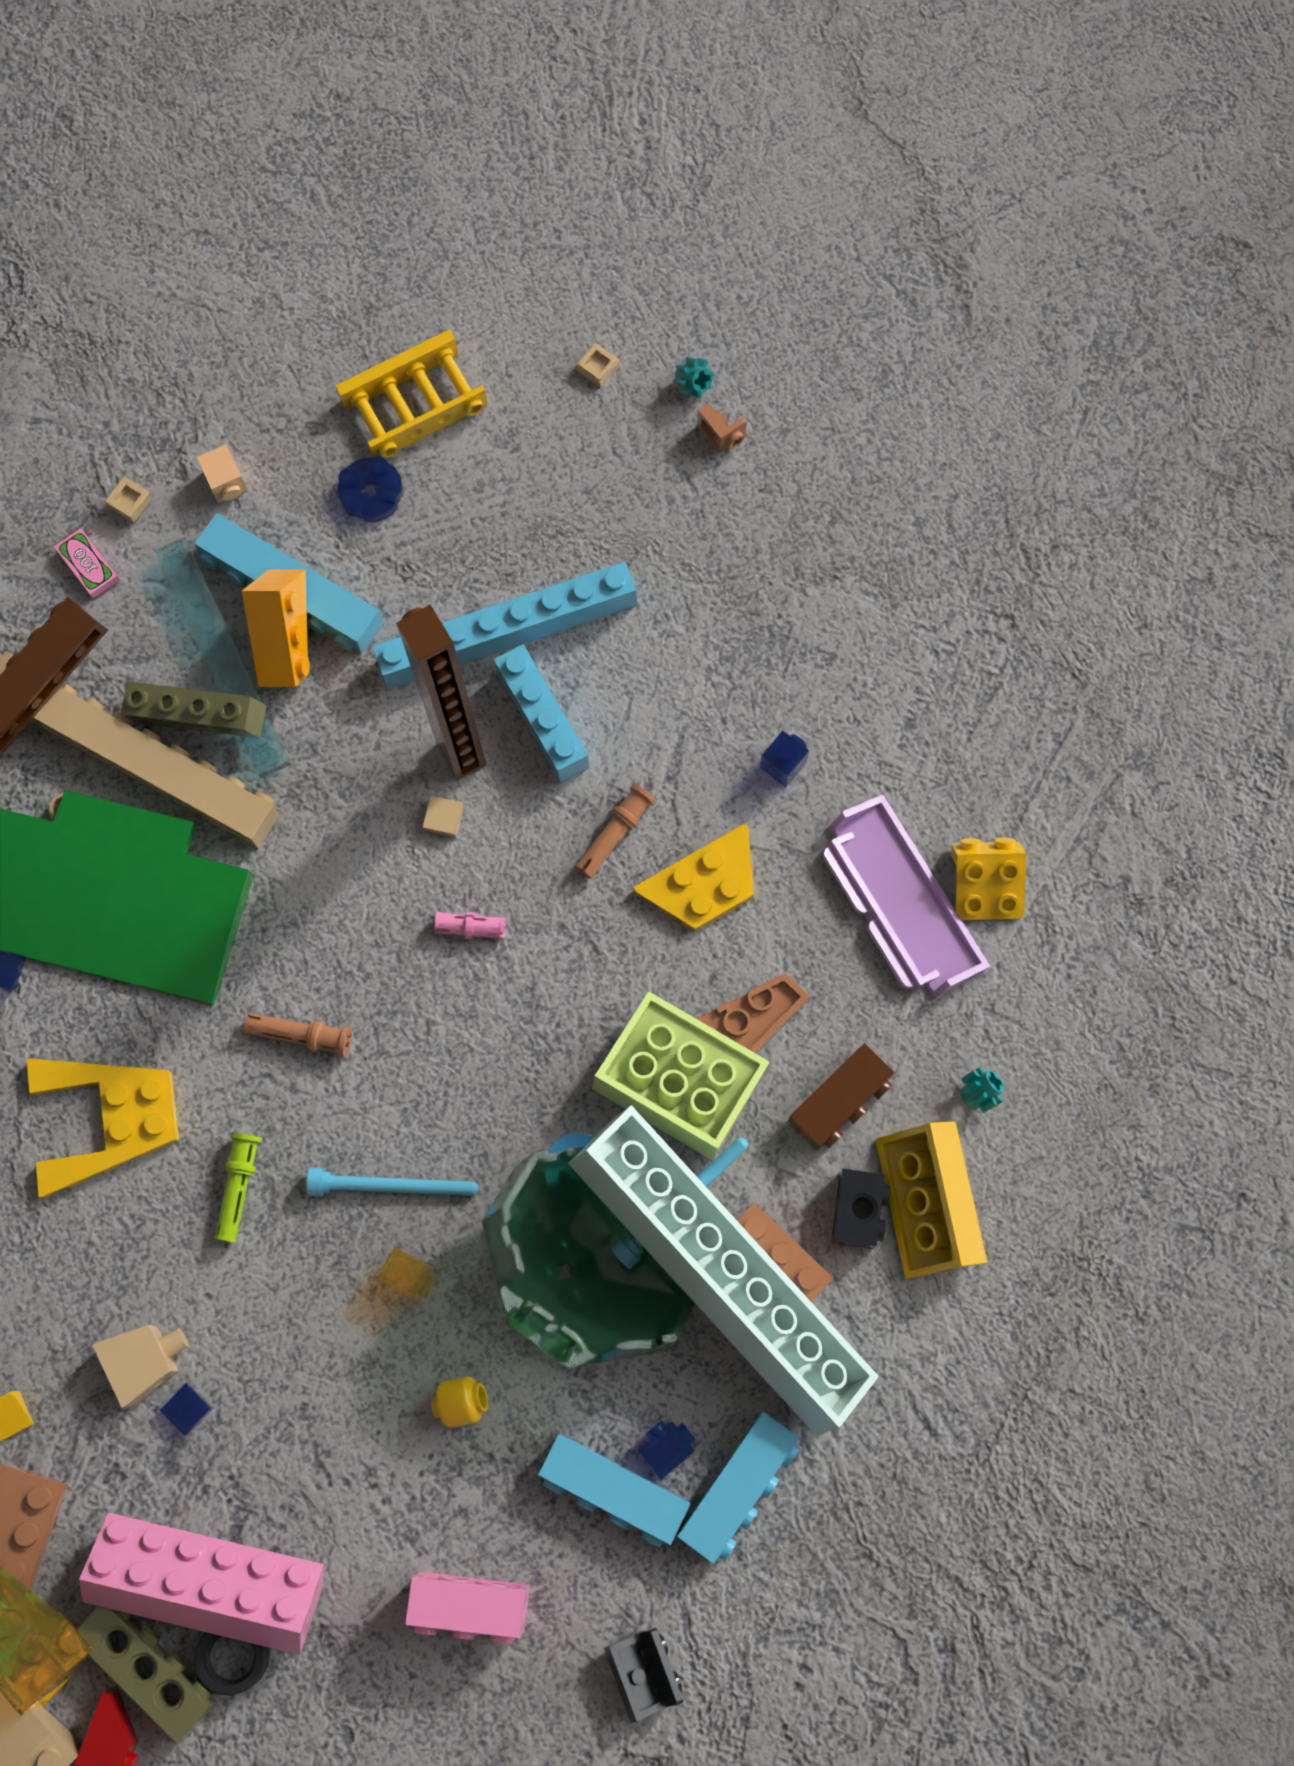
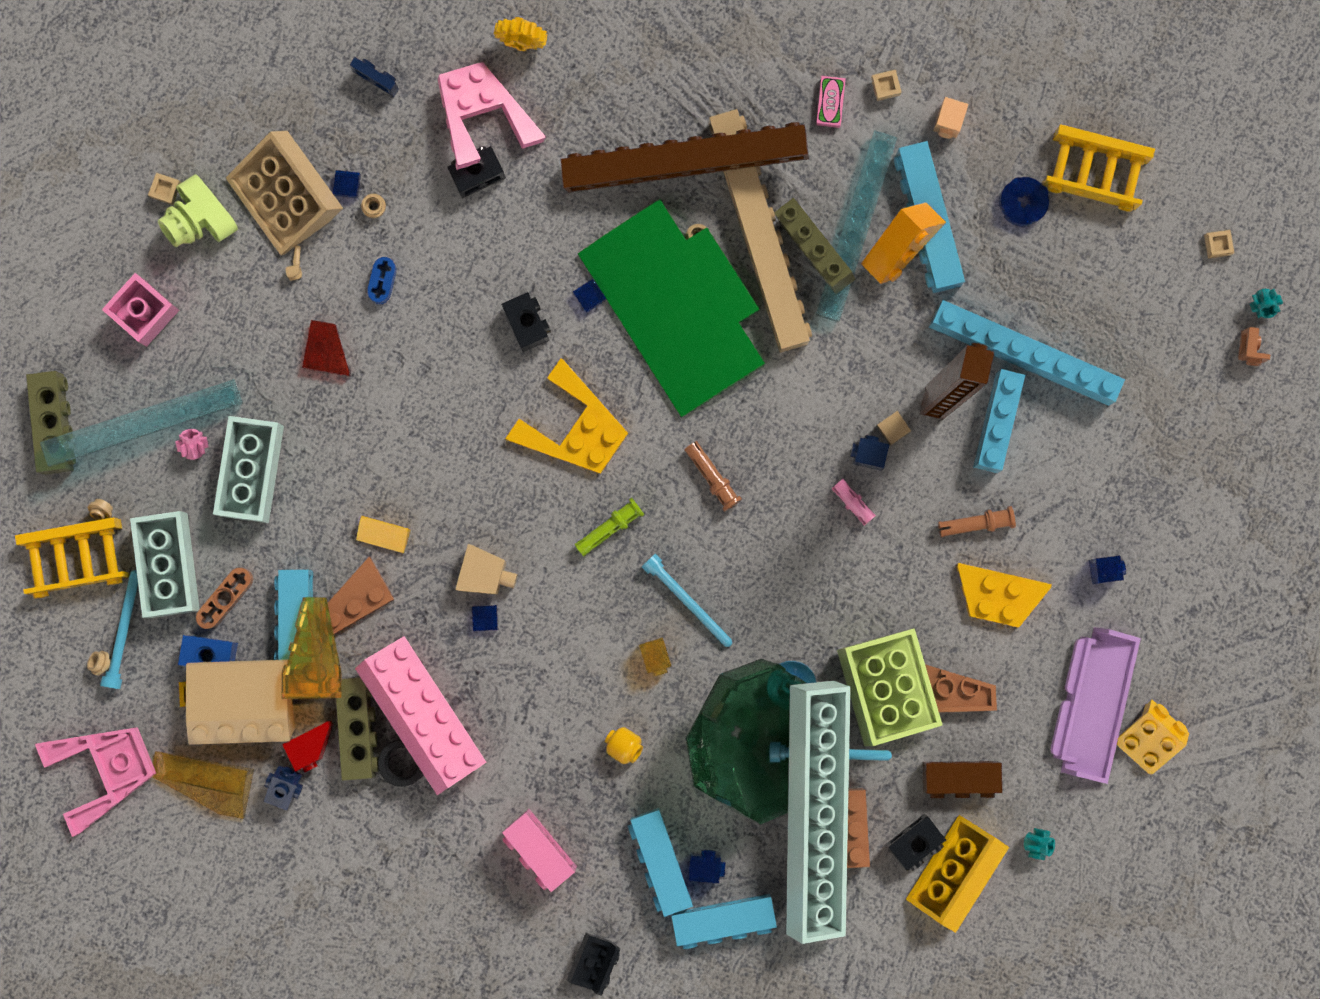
camera: 40 degrees right, 10 degrees up
(440, 861) = (869, 452): none -> dark blue brick

